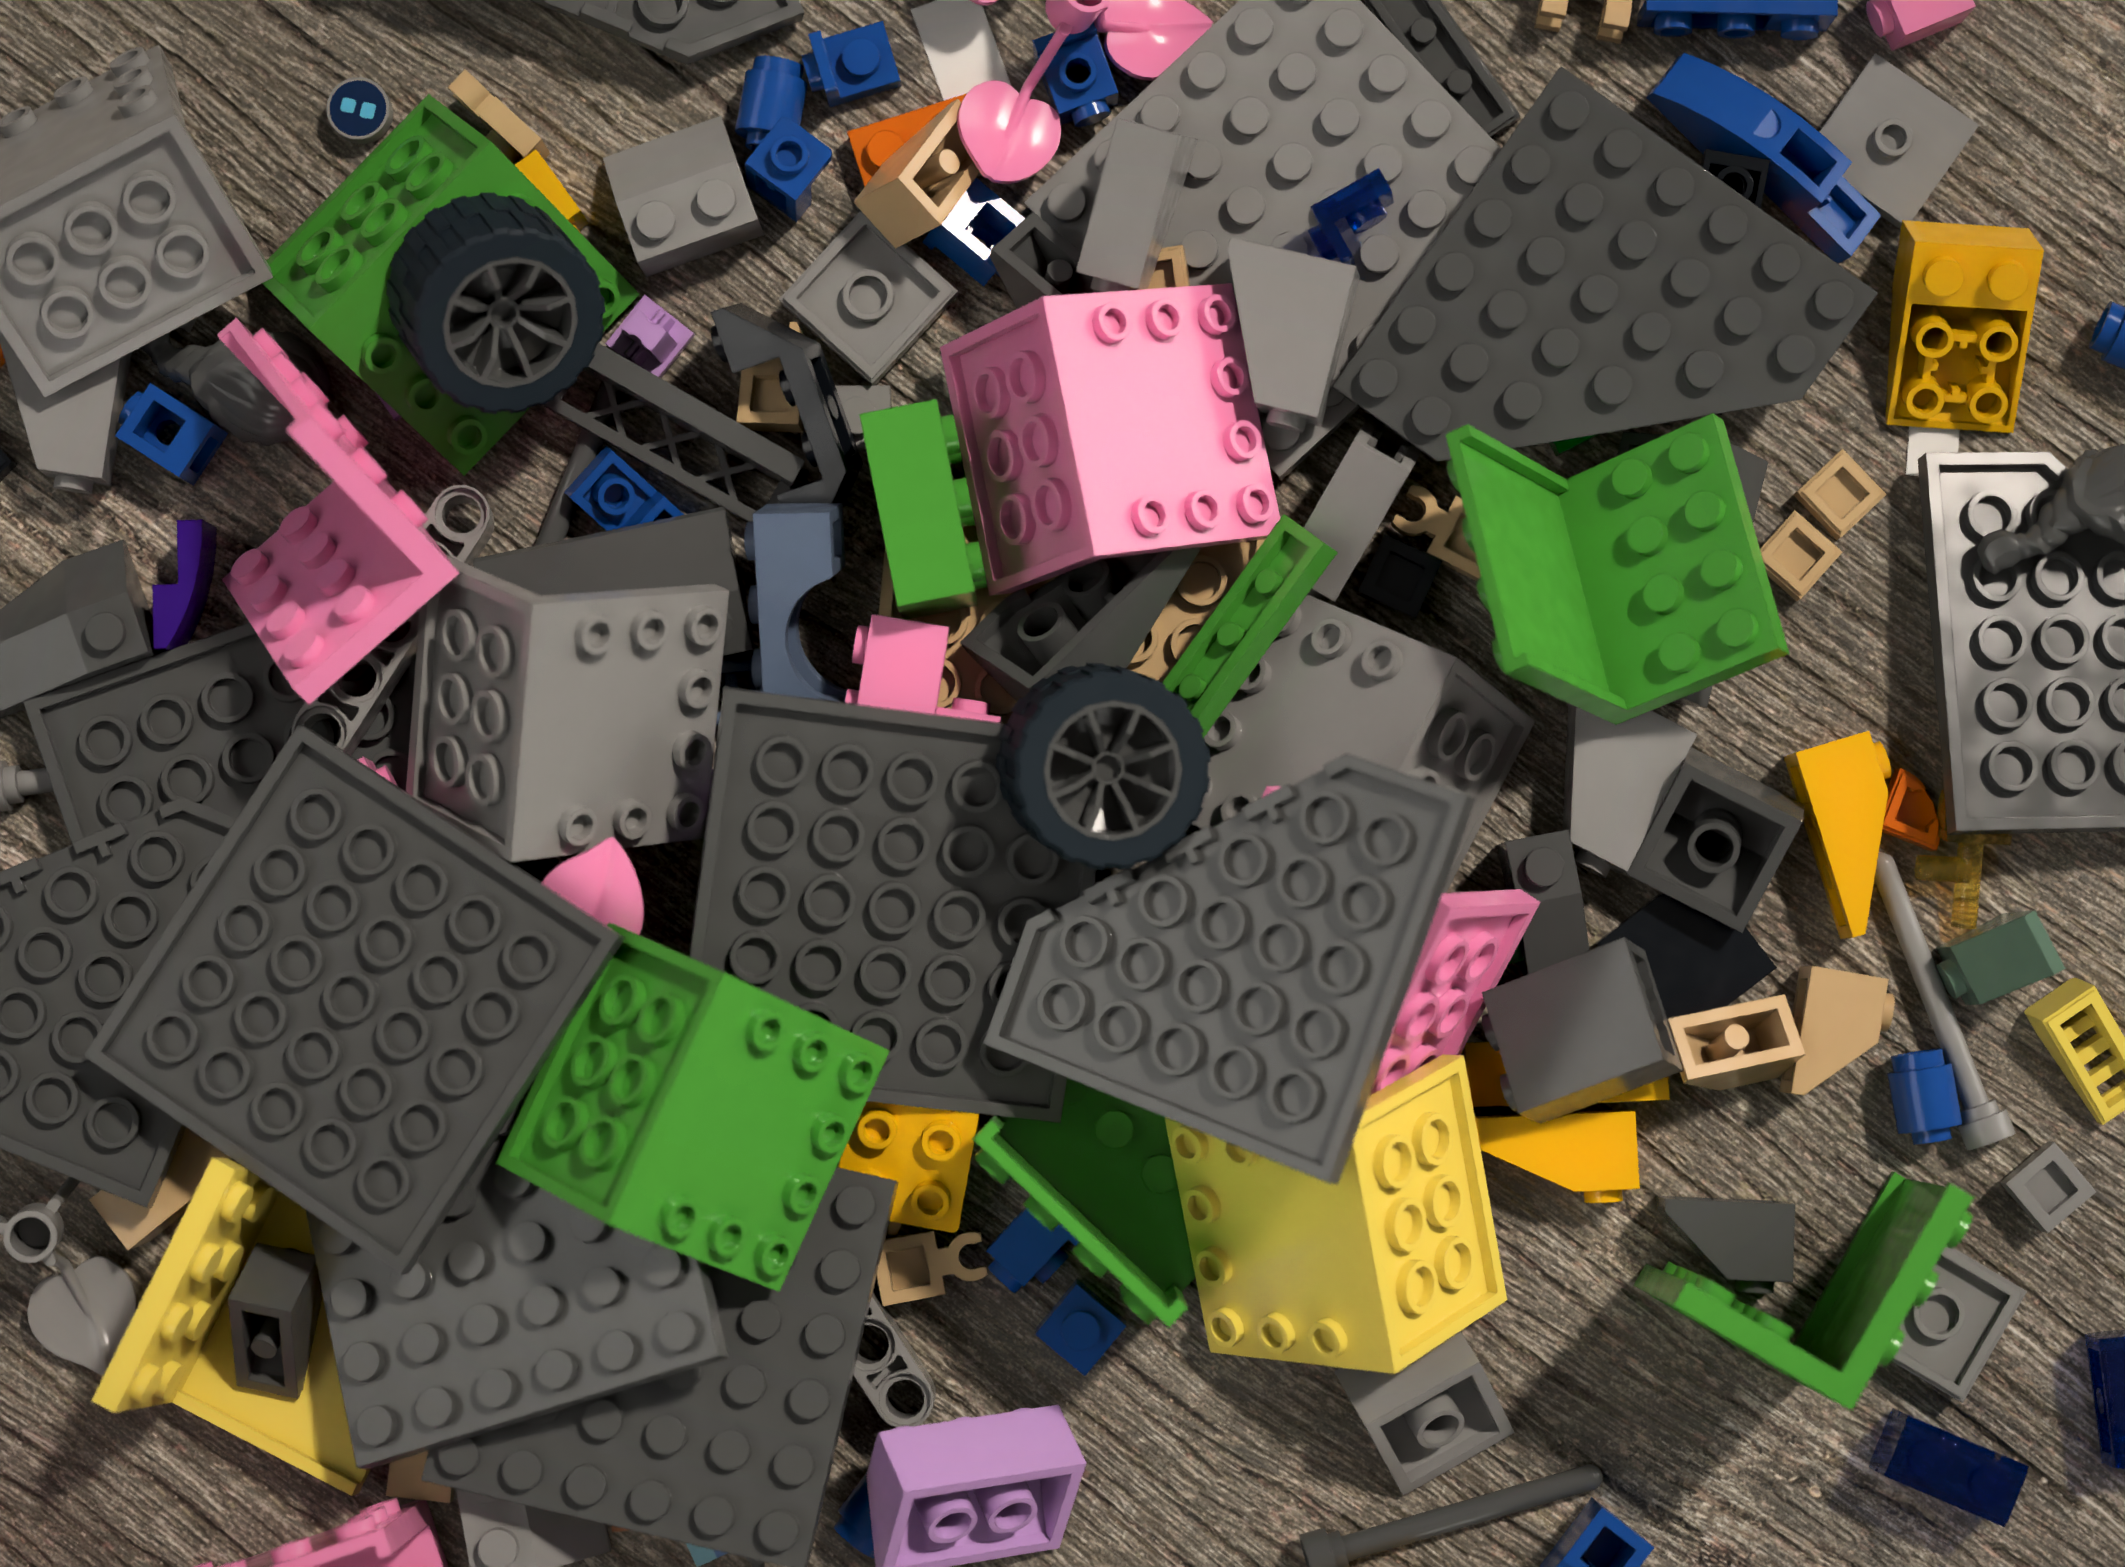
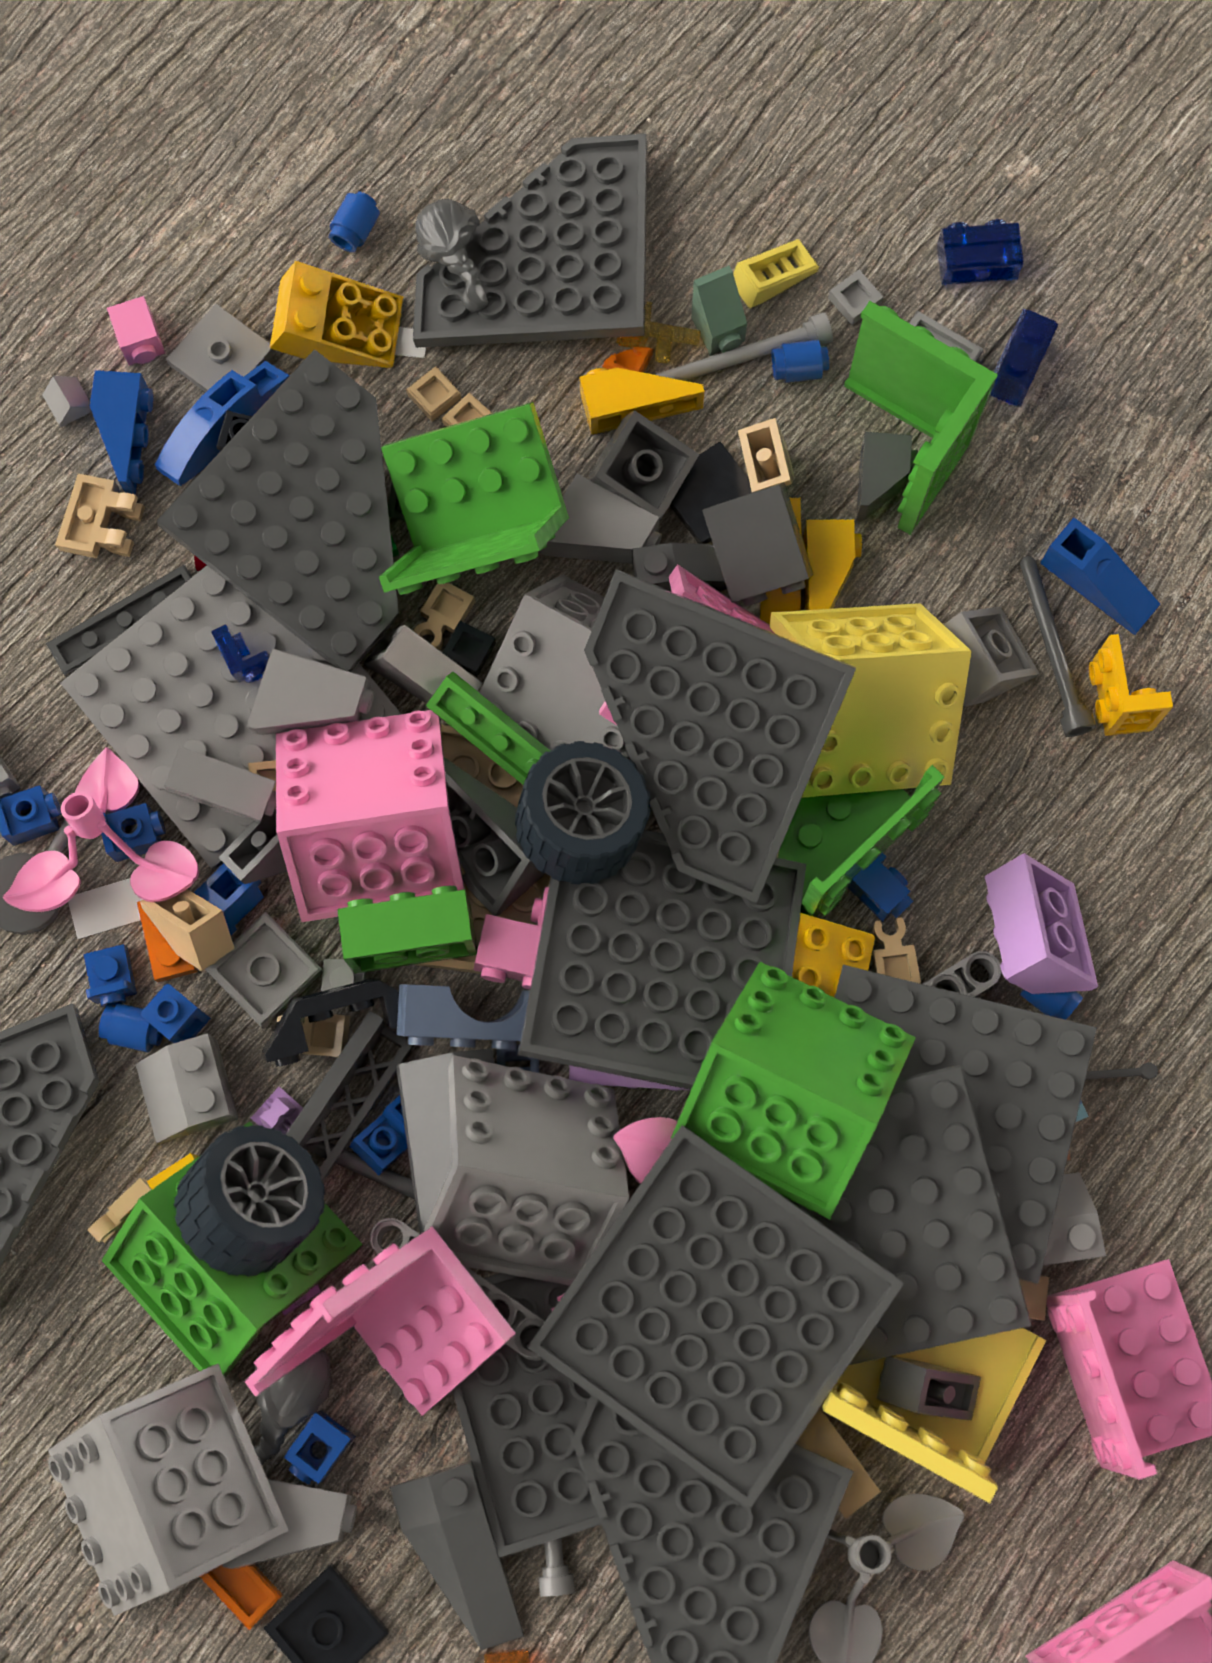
camera: 90 degrees left, 10 degrees down
(181, 605) = (436, 1443): dark purple slope -> none
(359, 110) = (108, 1308): dark blue tile -> none
(1080, 1327) = (935, 860): blue brick -> none
(1837, 1022) = (753, 401): tan slope -> none

